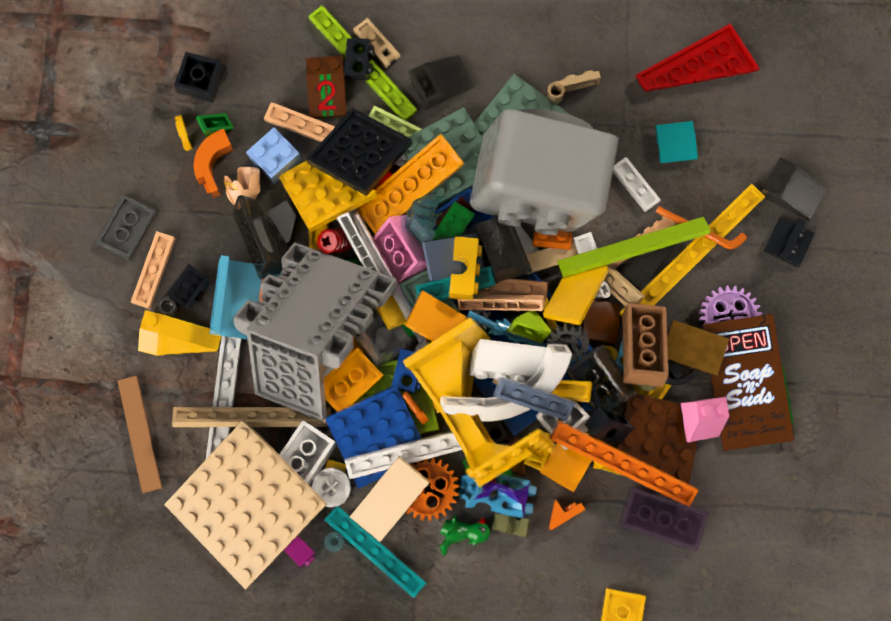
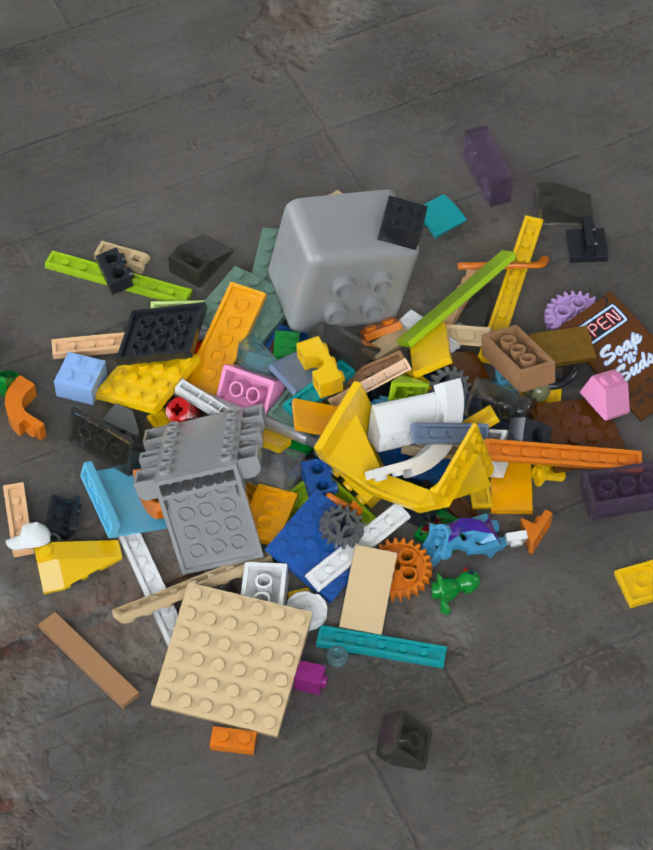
camera: 30 degrees left, 25 degrees down
(148, 301) = (31, 536): none -> white piece
(211, 572) = (233, 740): none -> orange plate
(246, 184) = (61, 409): light nougat helmet -> none
(326, 86) = (96, 305): reddish brown slope -> none
(402, 427) = (351, 531): none -> dark grey gear
(511, 525) = (488, 563): olive leg -> none
(541, 513) = (516, 538): none -> white plate
(598, 184) = (402, 222): none -> black brick
(636, 184) = (434, 264): white tile -> none
(708, 59) = (422, 149): red wing -> none
(748, 113) = (488, 166): none -> clear purple brick

